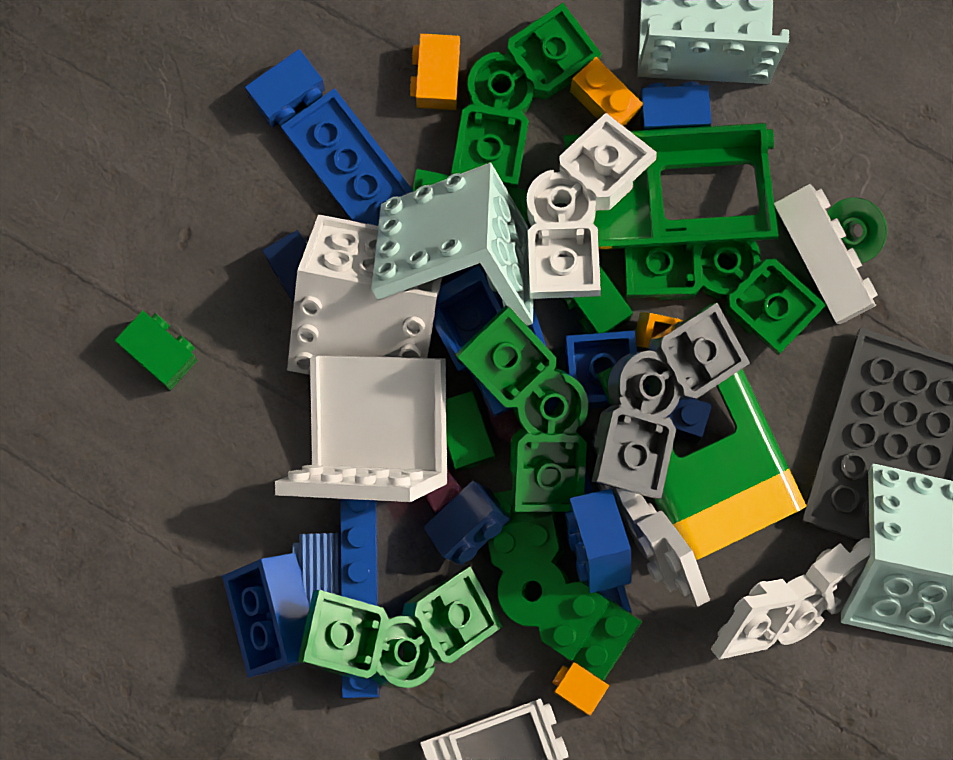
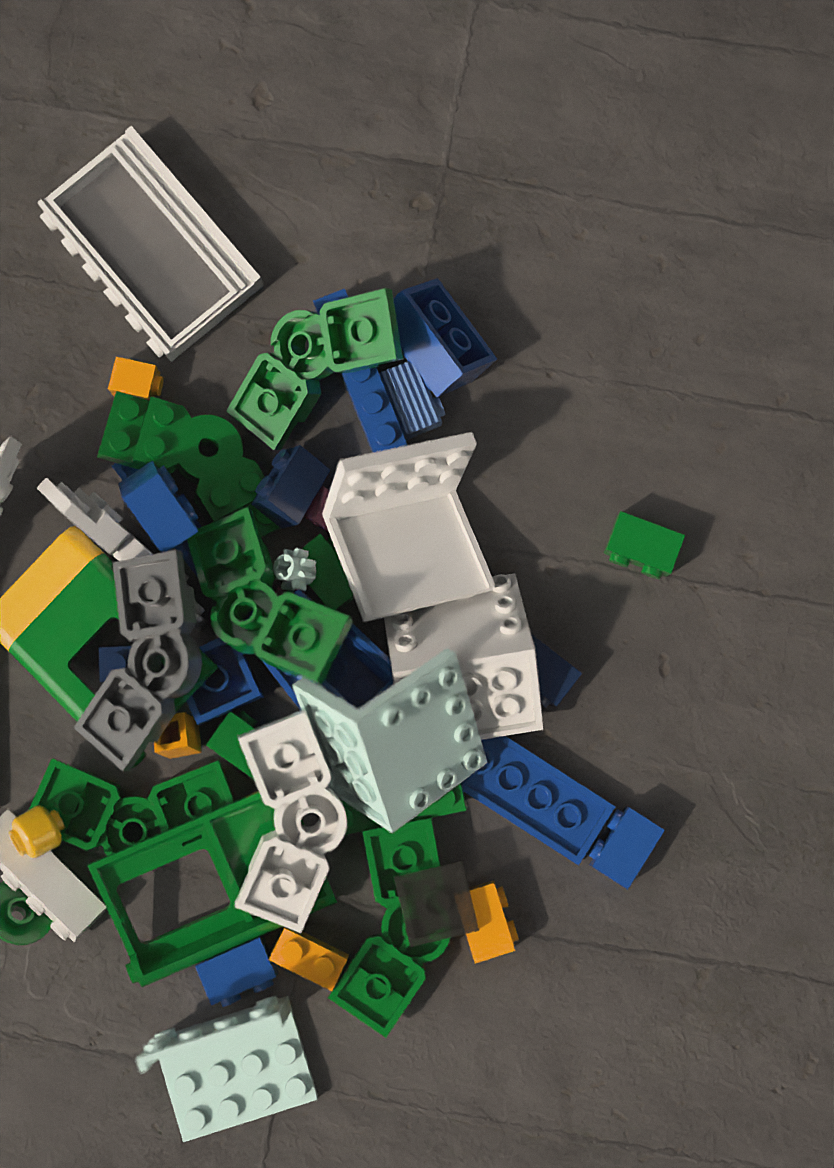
camera: 165 degrees right, 5 degrees up
(474, 97) = (436, 903): none -> clear smoke tile
(491, 437) = (294, 569): none -> light aqua gear
(815, 287) = (36, 831): none -> yellow head

